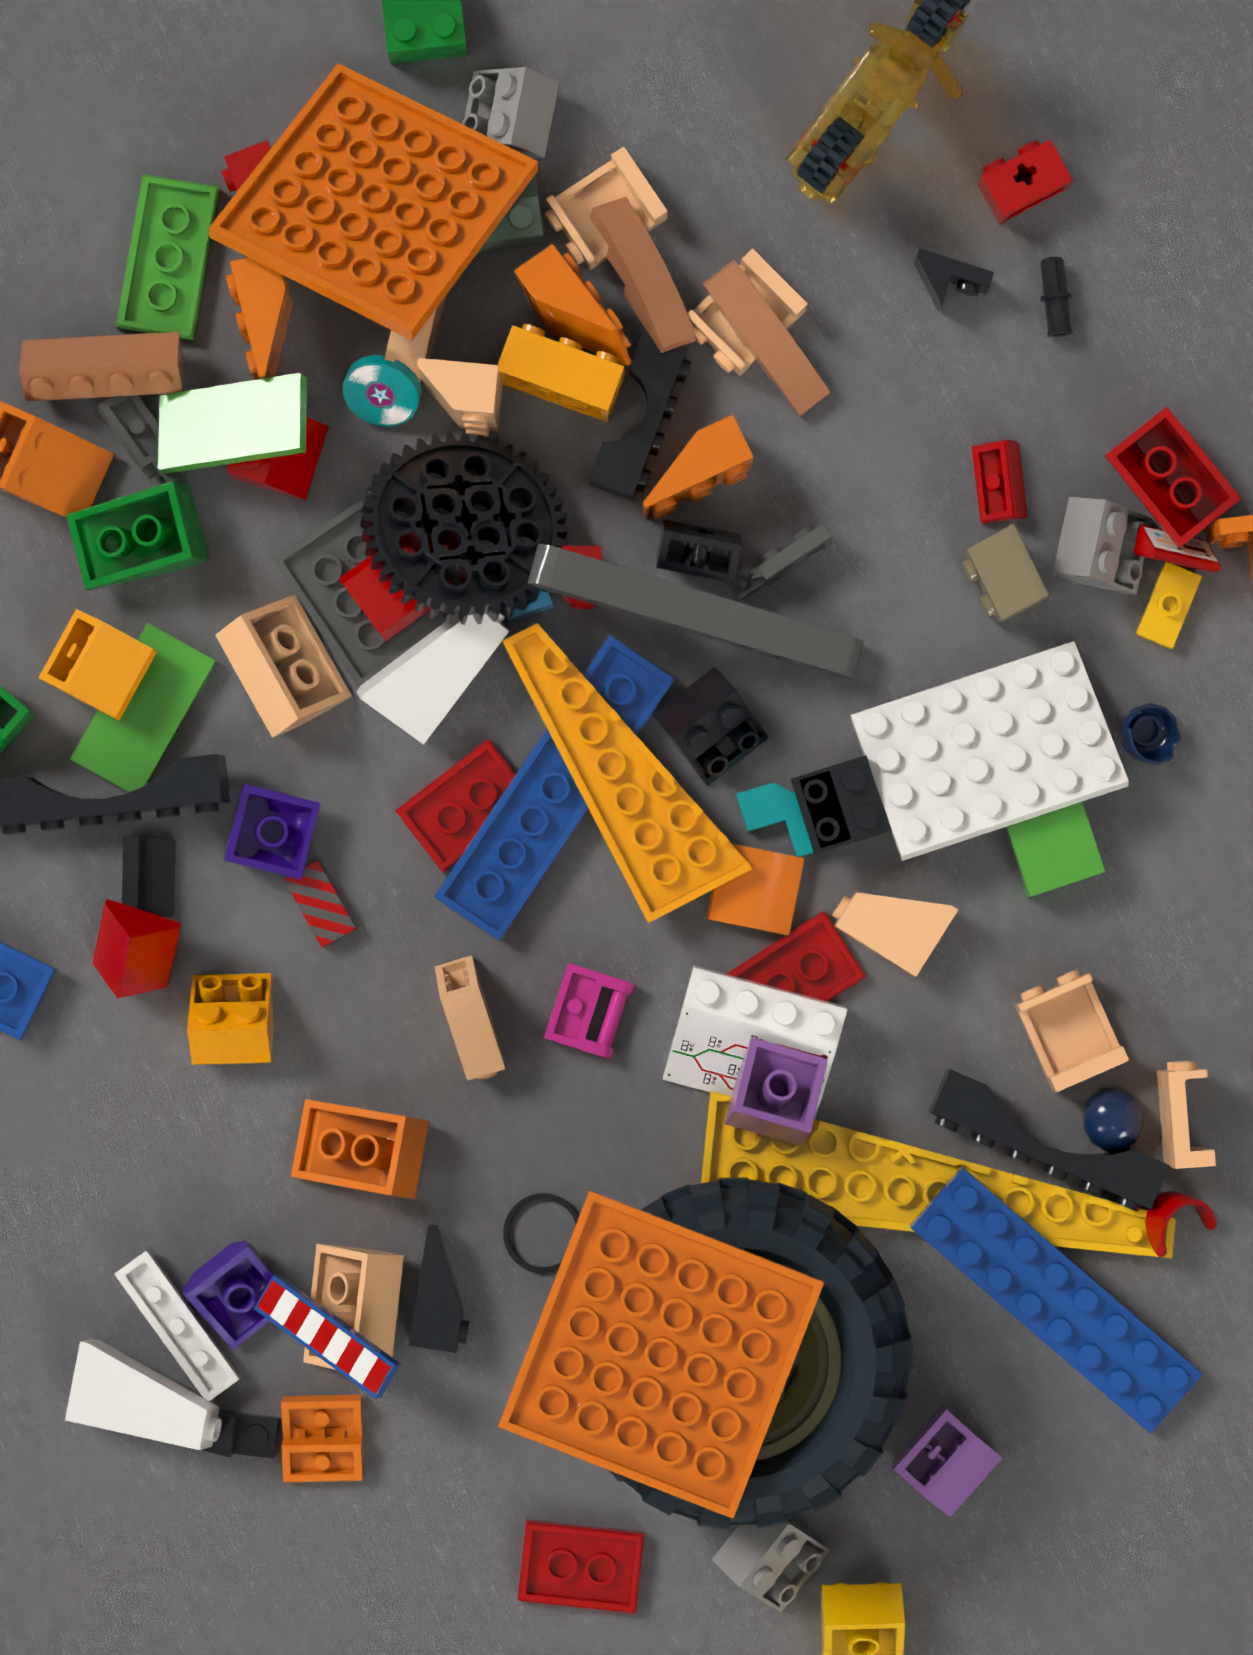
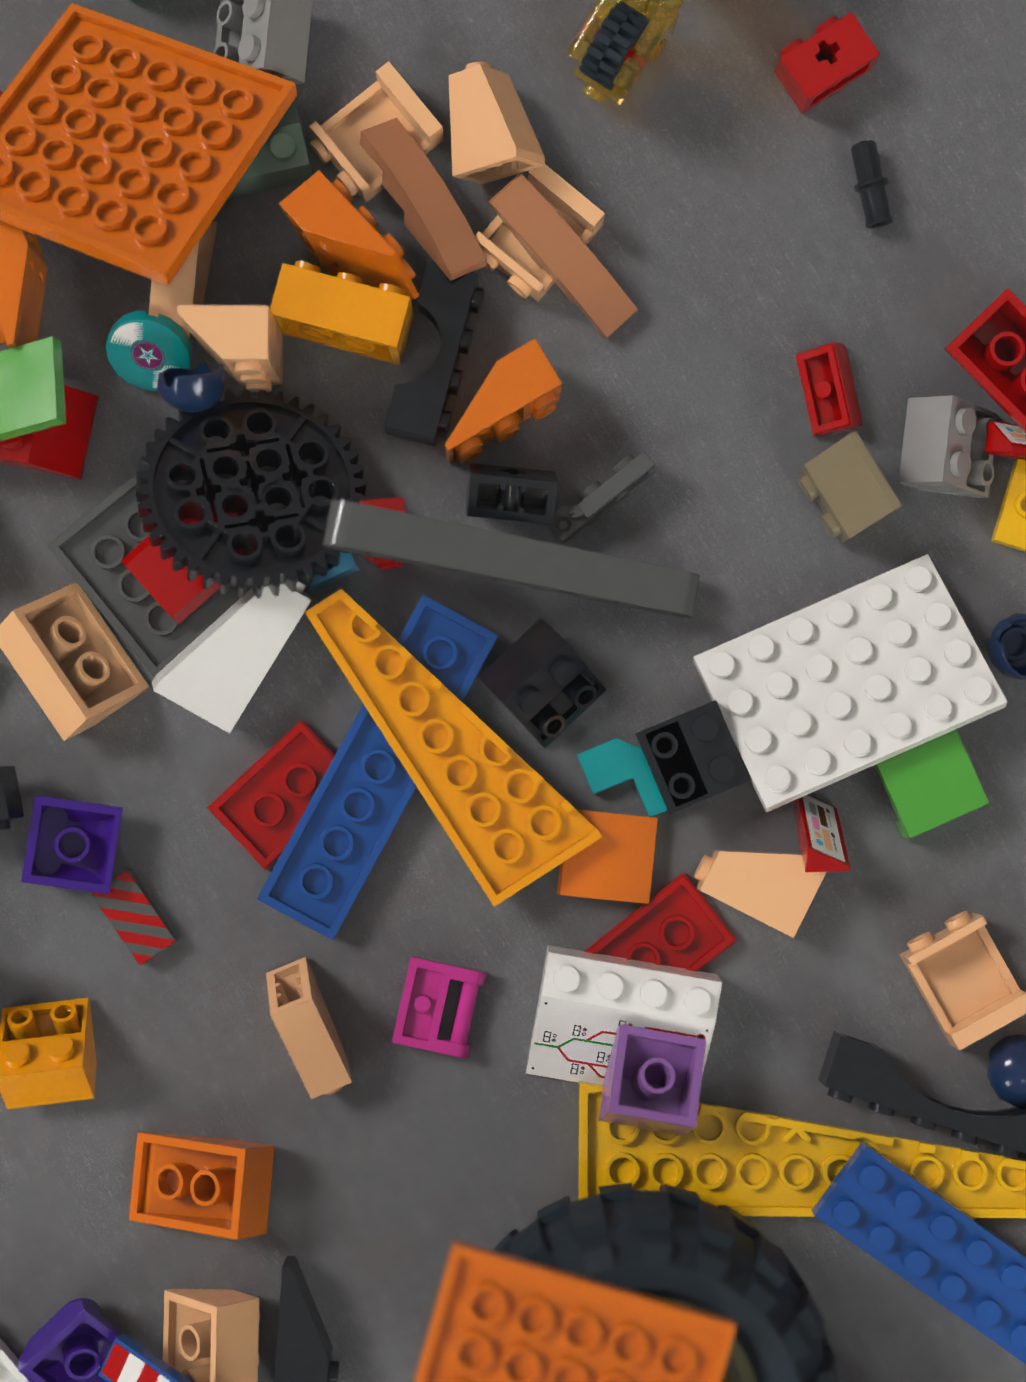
camera: 15 degrees left, 0 degrees up
(418, 430) = (192, 389): none -> dark blue hair
(516, 1207) = (370, 1253): black piece -> none
(710, 213) = (489, 126): none -> light nougat slope
(939, 271) = (745, 167): black slope -> none
(949, 887) = (820, 836): none -> slope

